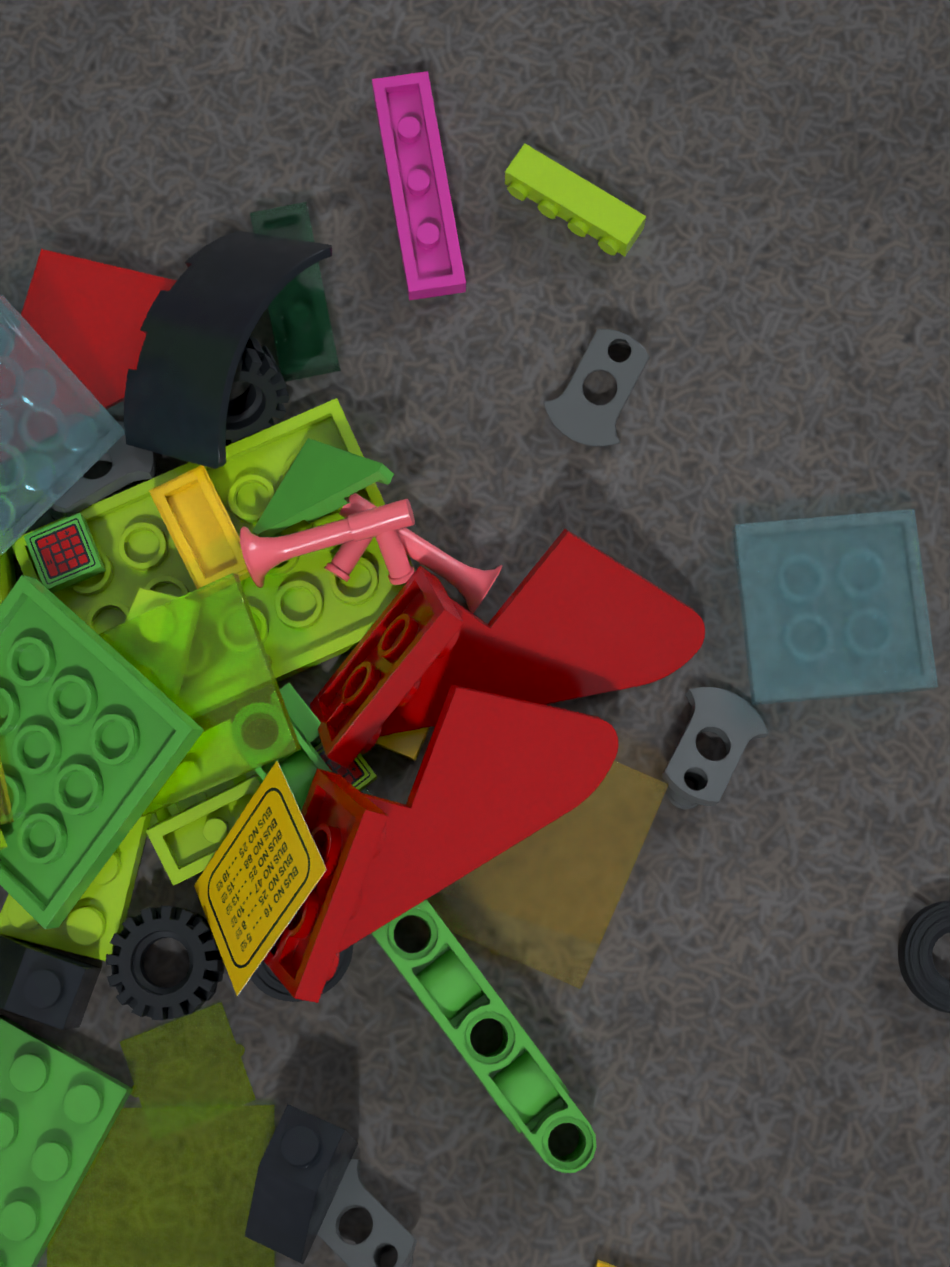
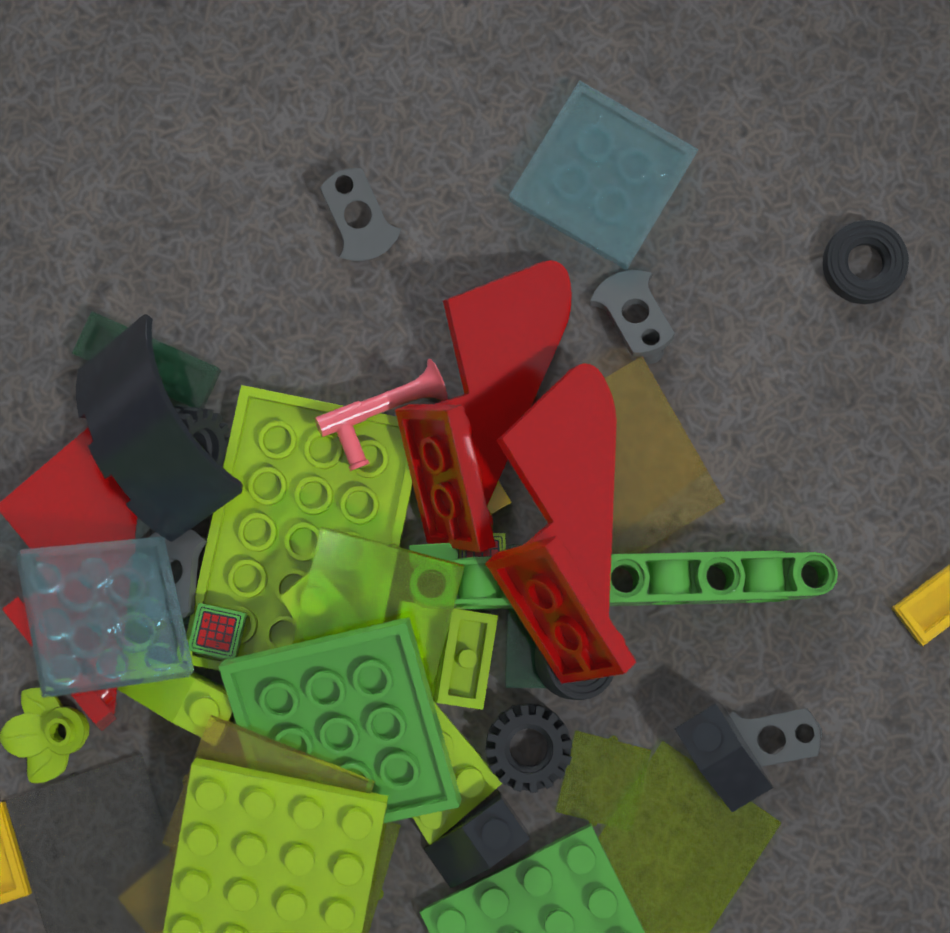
camera: 60 degrees left, 5 degrees up
(200, 527) = (268, 532): yellow tile -> none
(259, 877) = (525, 647): yellow sticker -> none
(317, 486) = (294, 437): bright green tile -> none
(380, 522) = (350, 414): coral piece -> none
(418, 186) = (133, 231): dark pink plate -> none
(574, 200) = (219, 140): lime piece -> none

